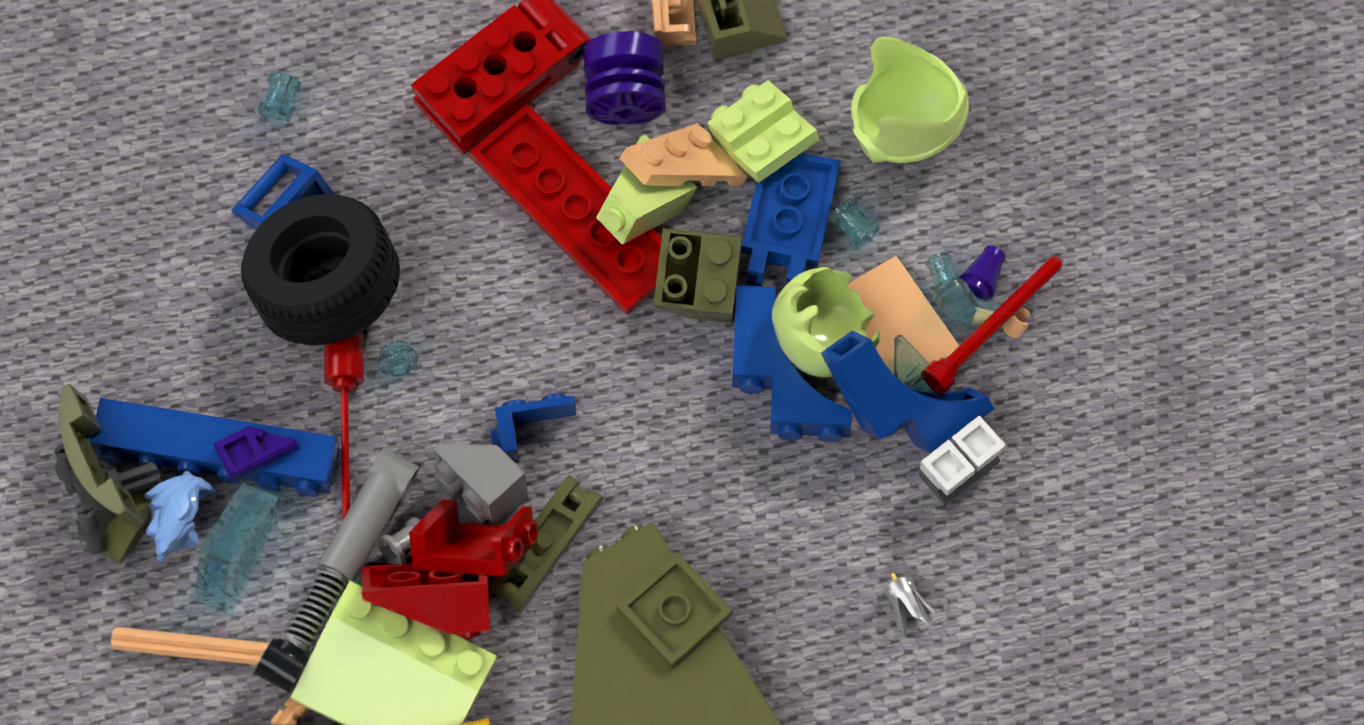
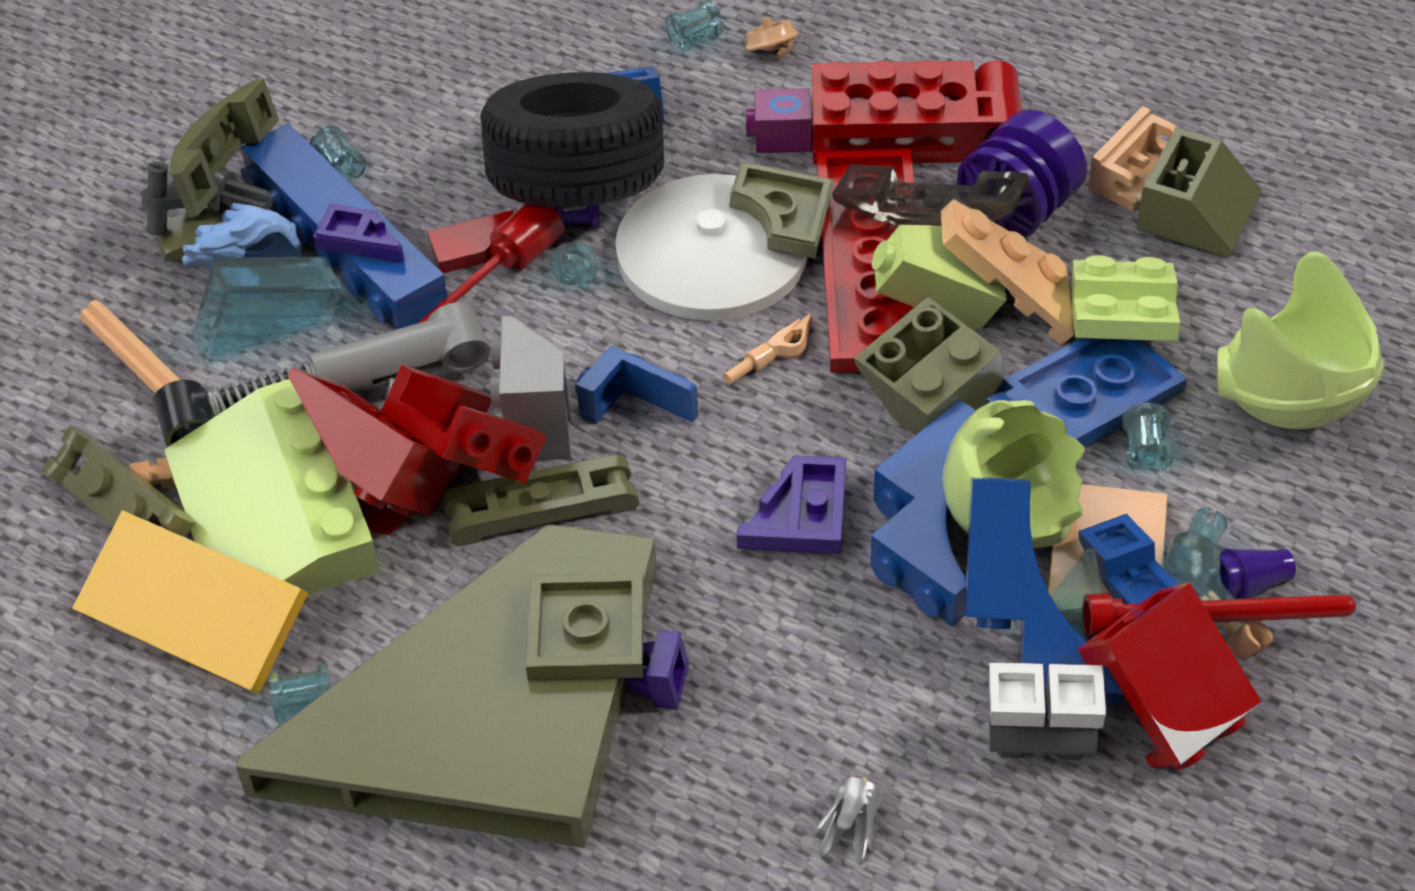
camera: 45 degrees right, 20 degrees down
(147, 391) = (339, 153): none -> clear light blue bush
(304, 391) = (465, 242): none -> tile
(341, 69) = (772, 36): none -> light nougat hat
(419, 140) = (780, 120): none -> magenta brick
(466, 274) = (699, 255): none -> white dish
(496, 212) = (786, 204): none -> olive tile
(574, 335) = (776, 347): none -> light nougat hand
(588, 146) = (880, 196): none -> clear smoke slope
(703, 427) = (801, 509): none -> wing
(730, 595) = (665, 670): none -> dark purple tile
(921, 326) = (1125, 559): none -> blue slope
(1007, 384) = (1175, 674): none -> red panel

